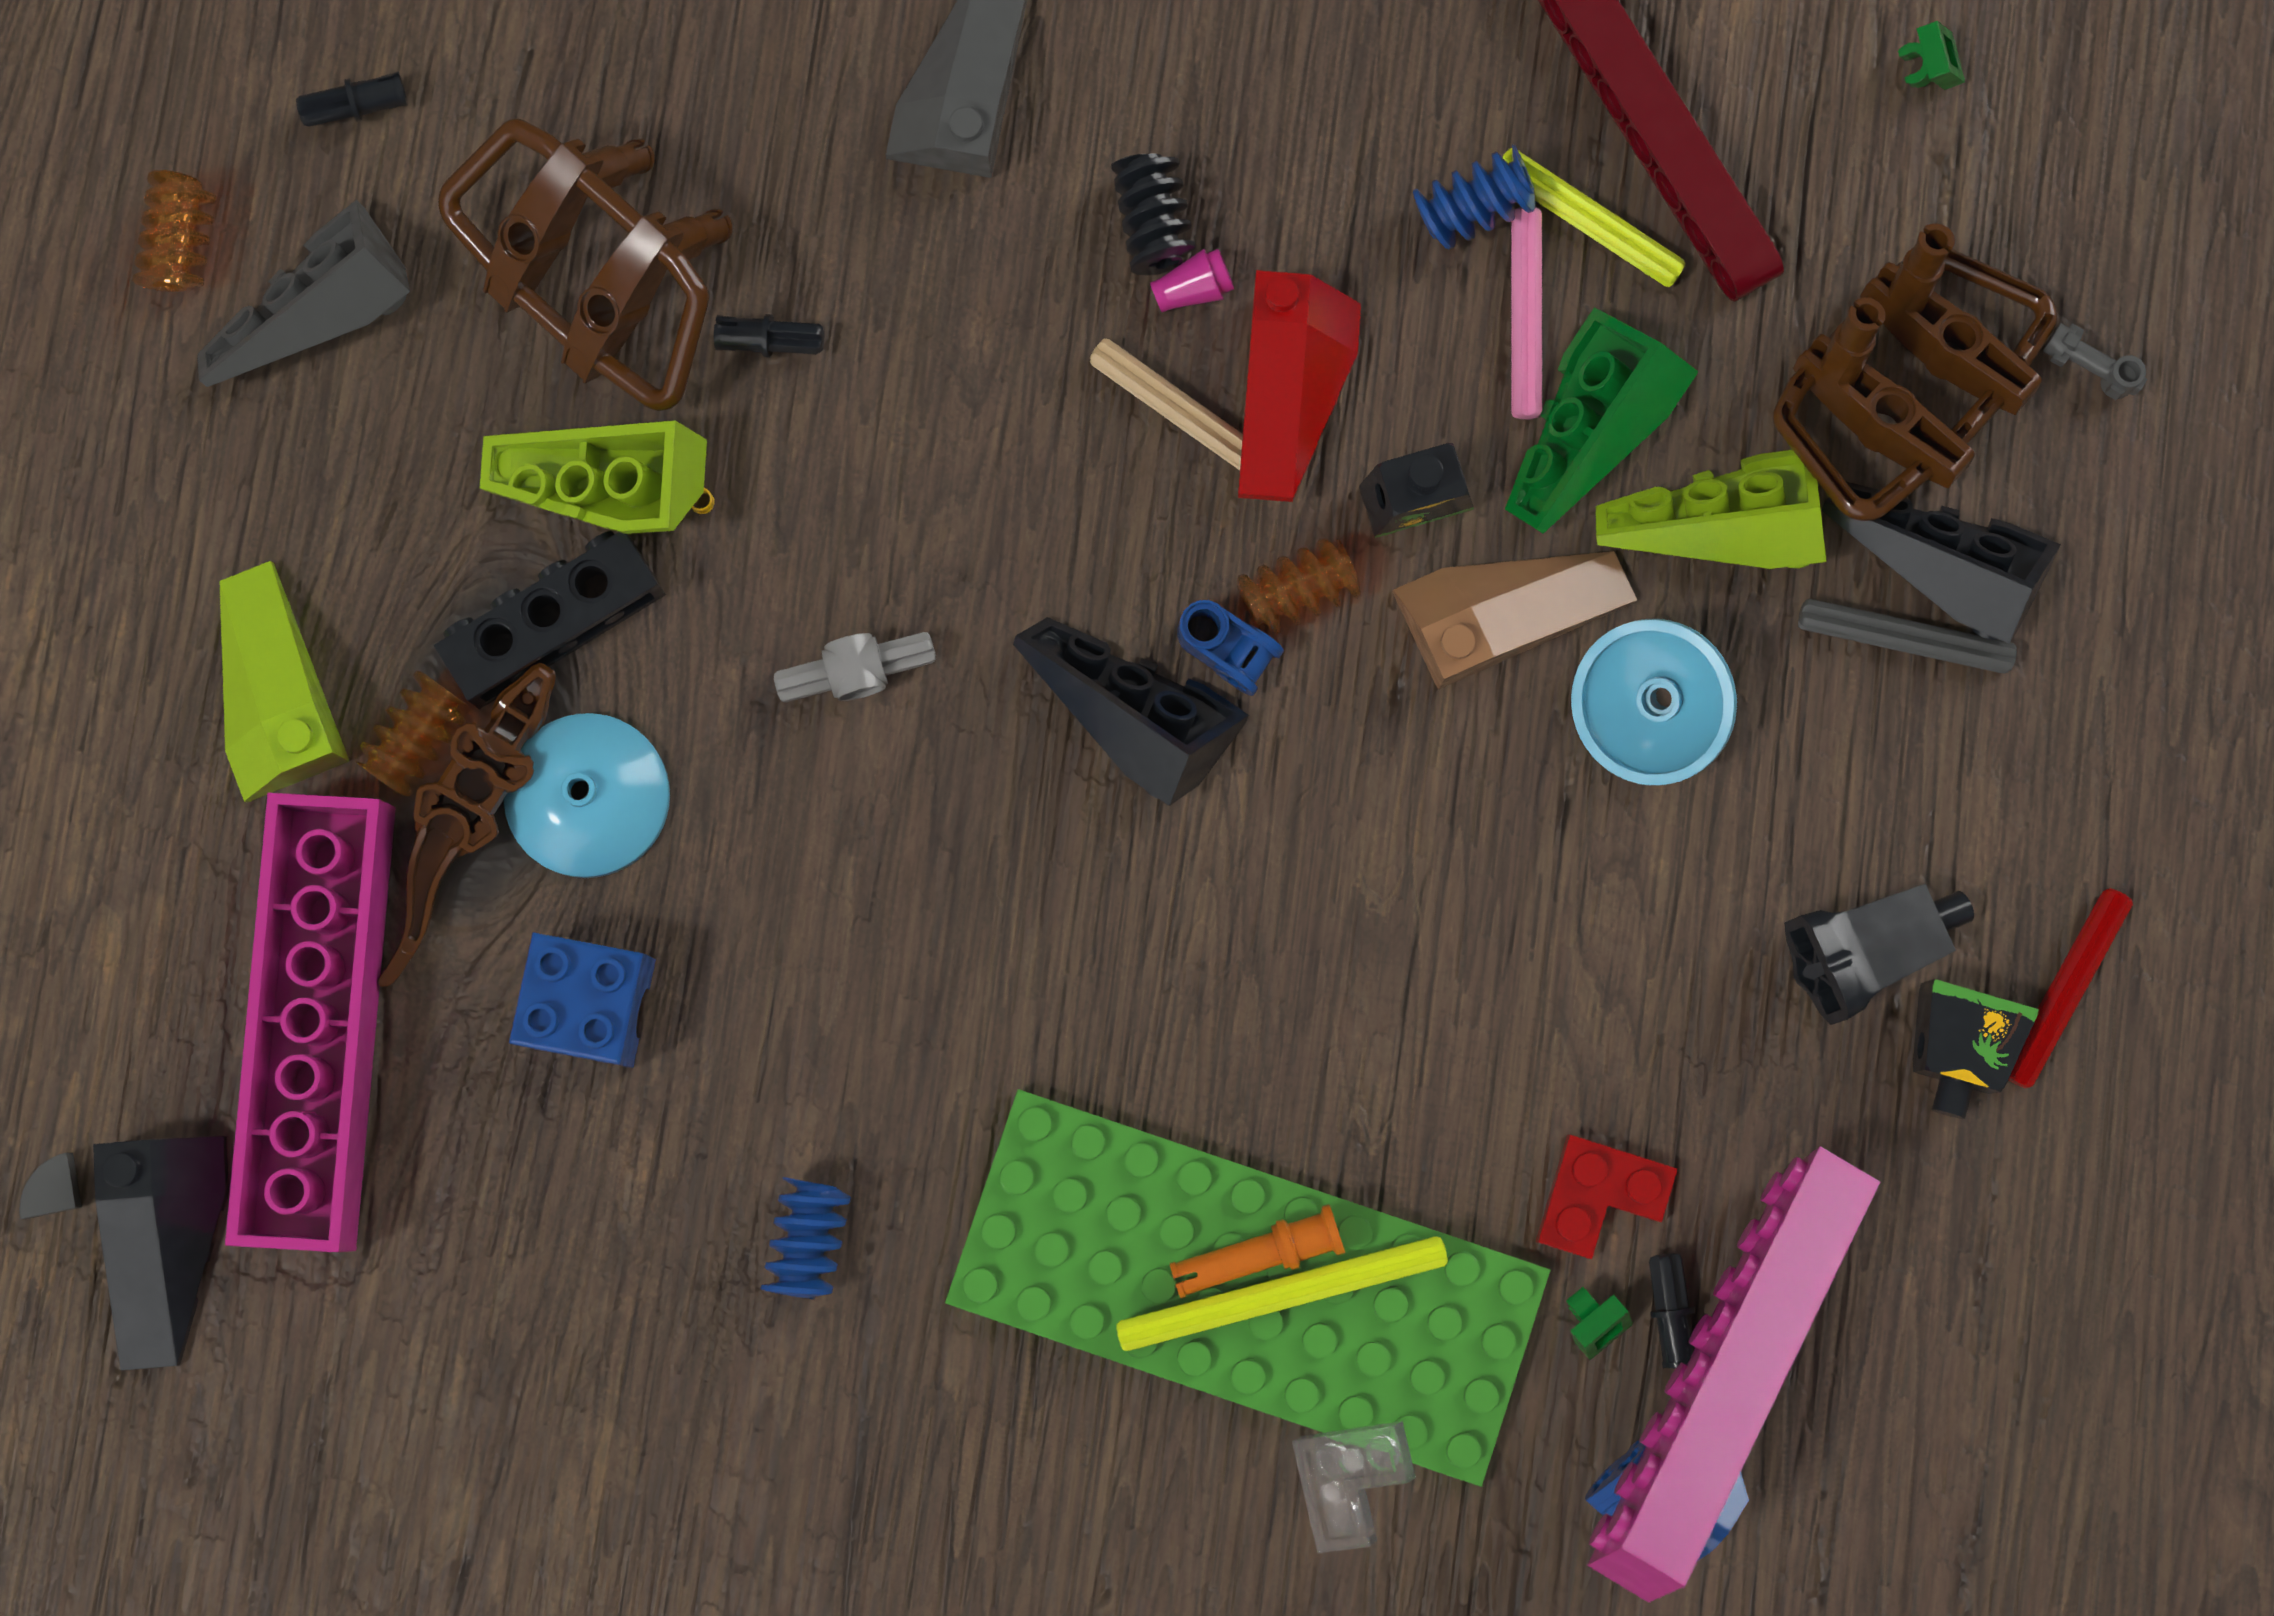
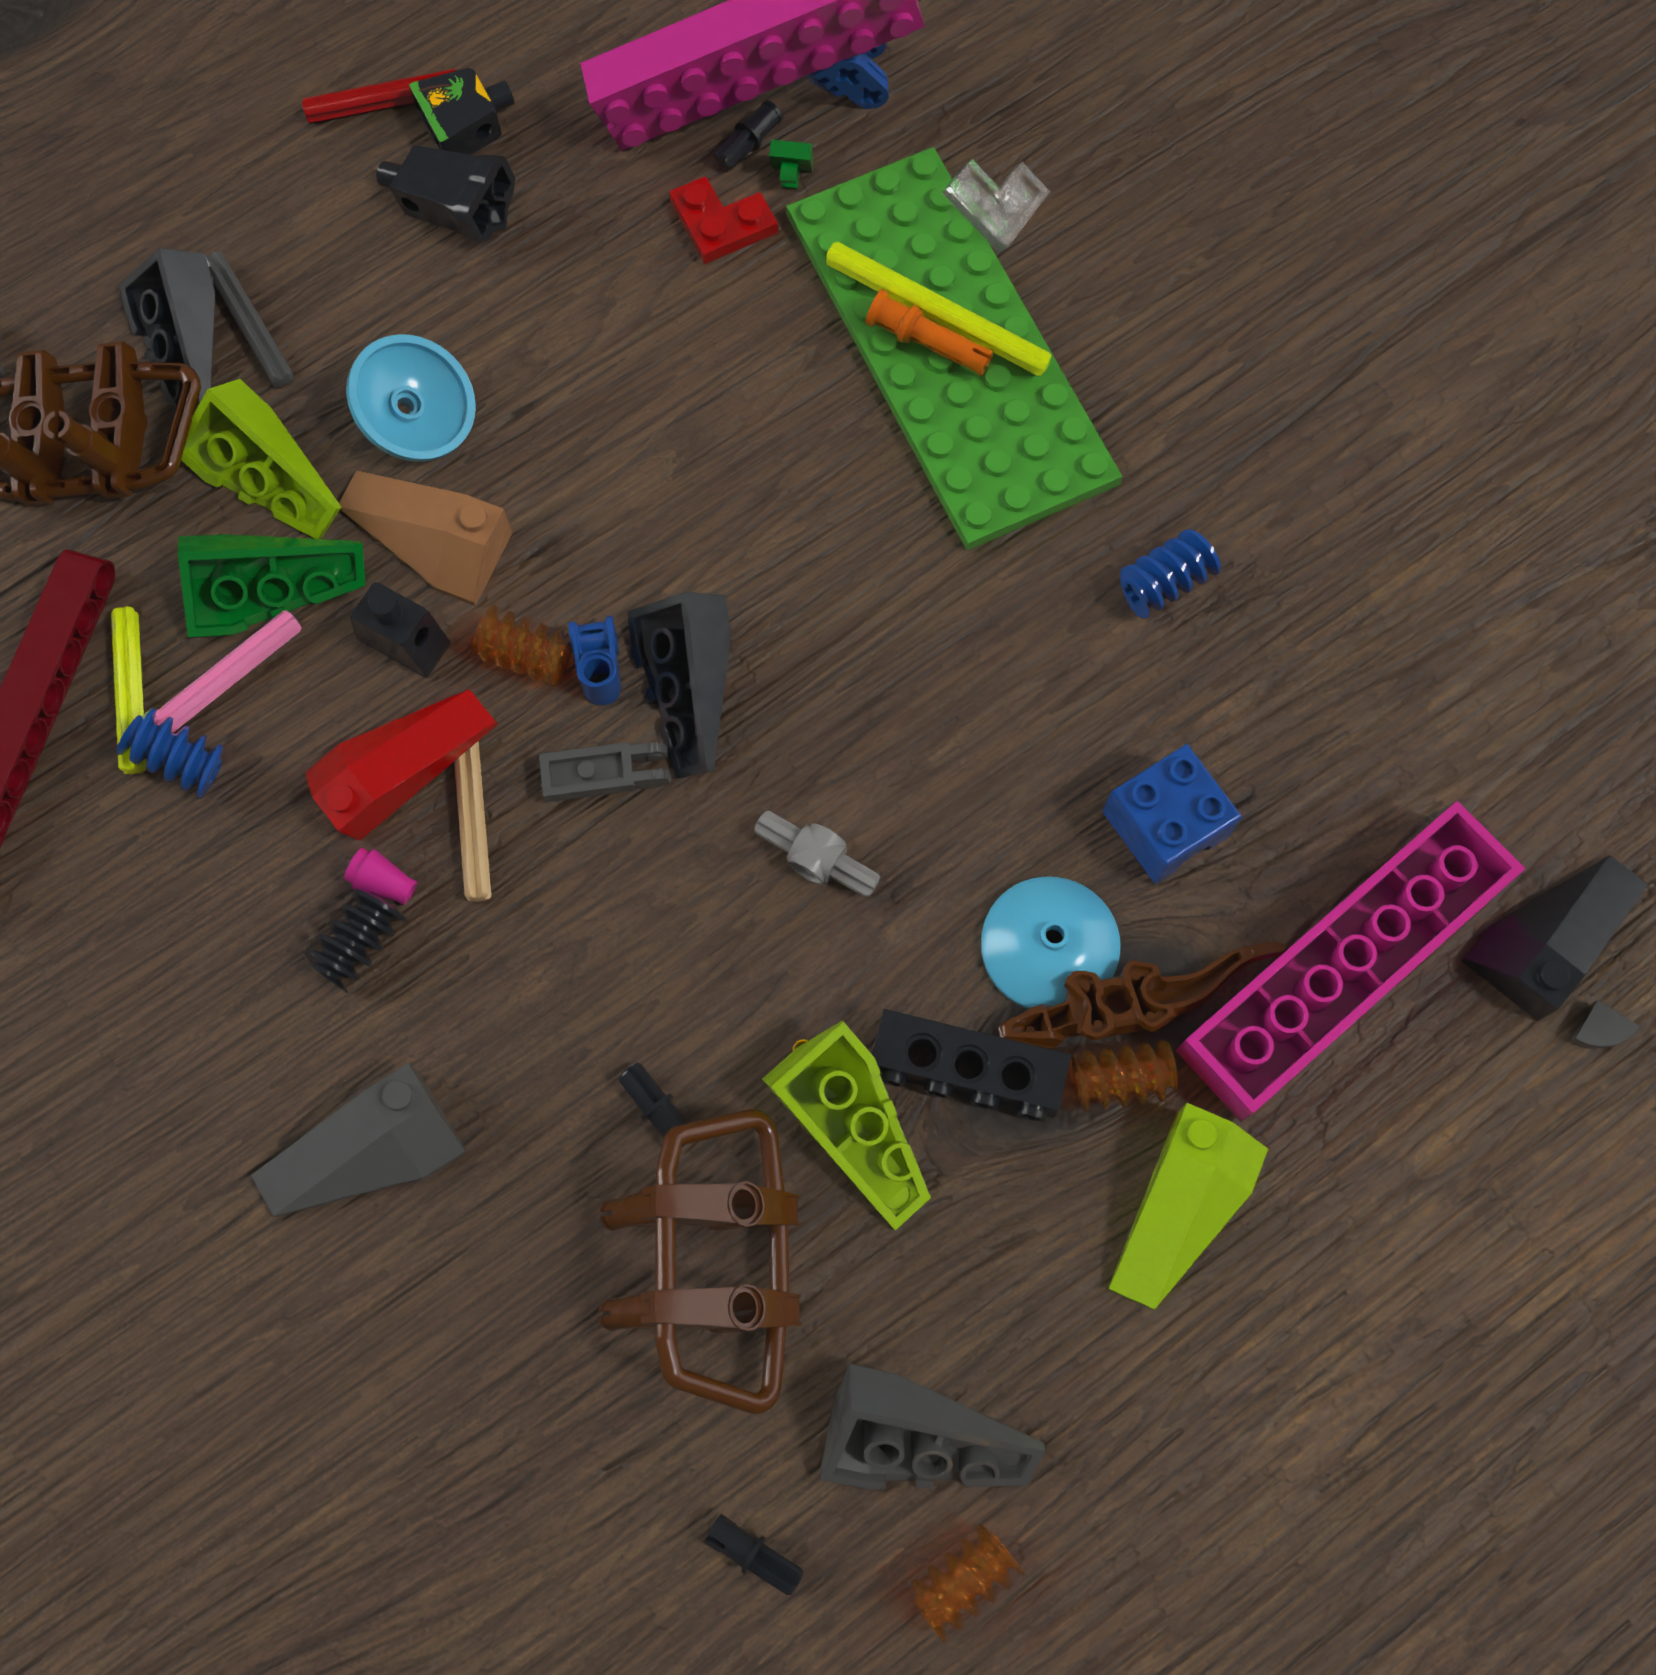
camera: 135 degrees left, 10 degrees down
(1115, 551) = (600, 770): none -> dark grey hinge

